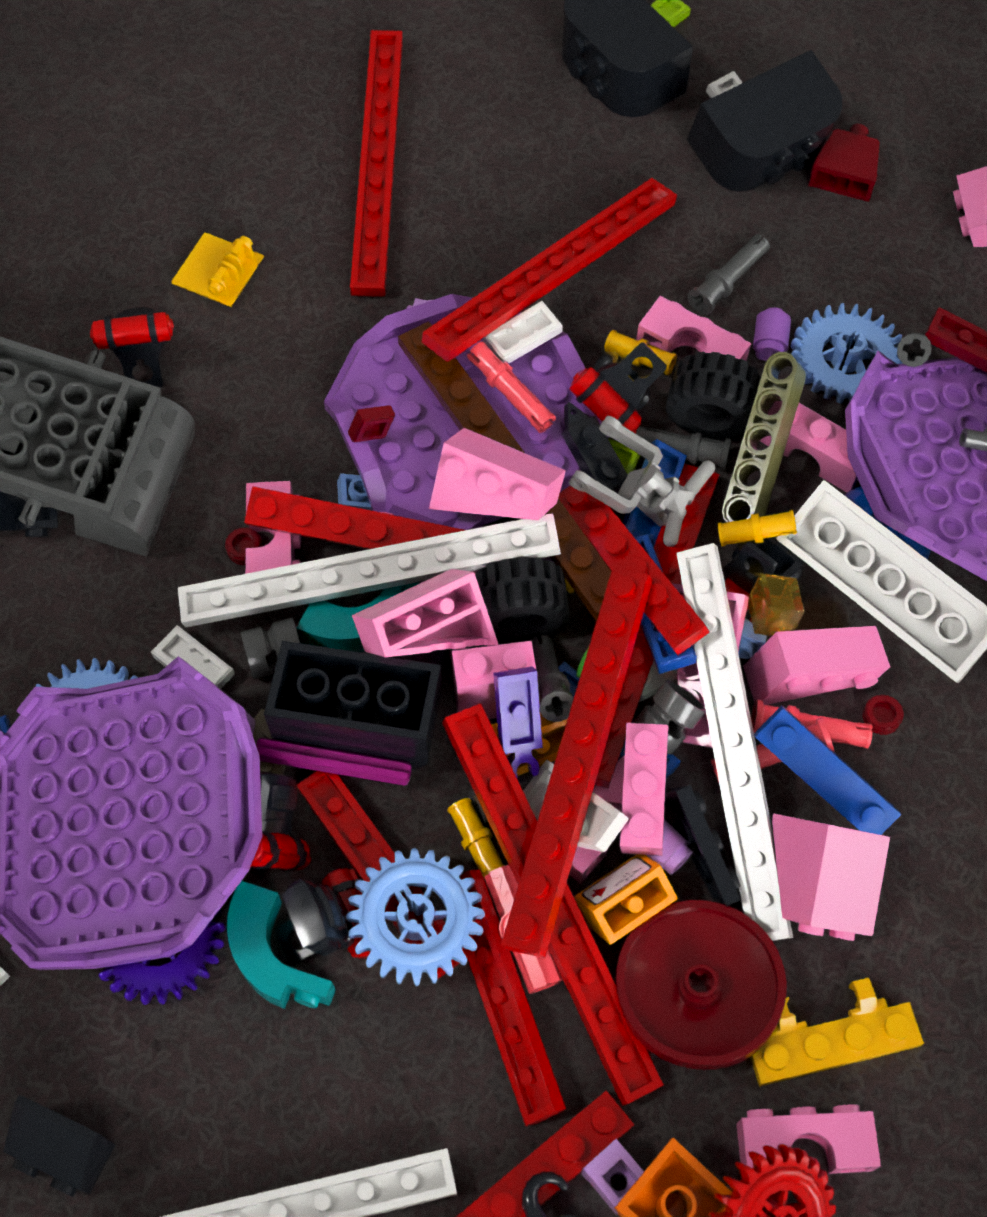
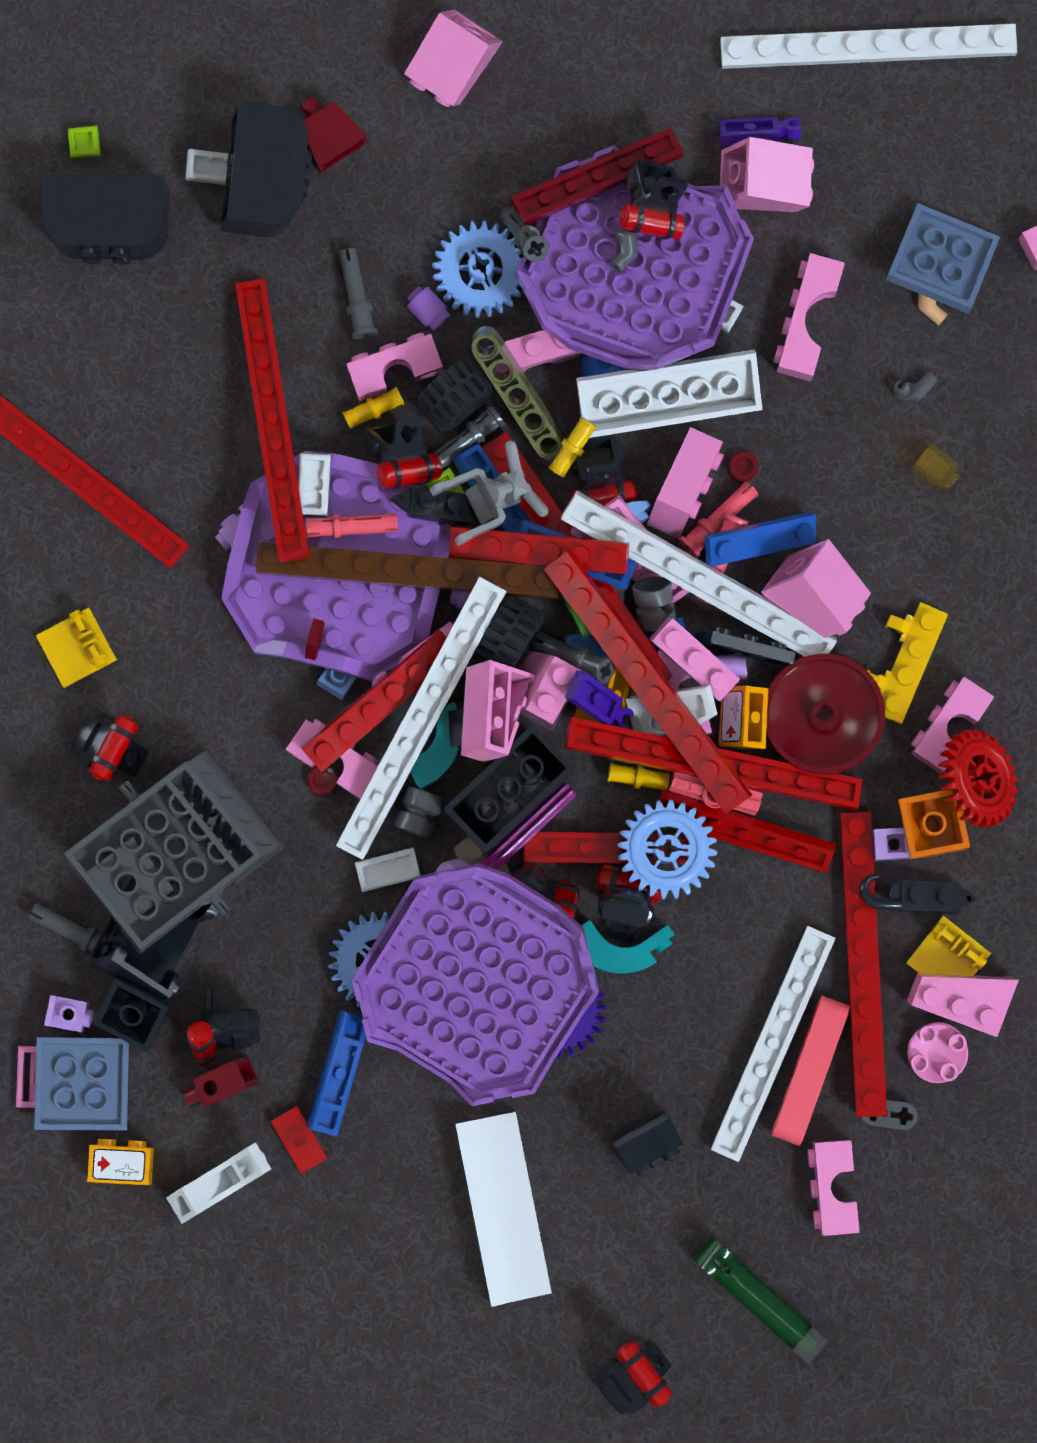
camera: 55 degrees left, 20 degrees up
(493, 479) = (428, 595): bright pink wedge -> none
(775, 604) = (636, 483): clear yellow brick -> none

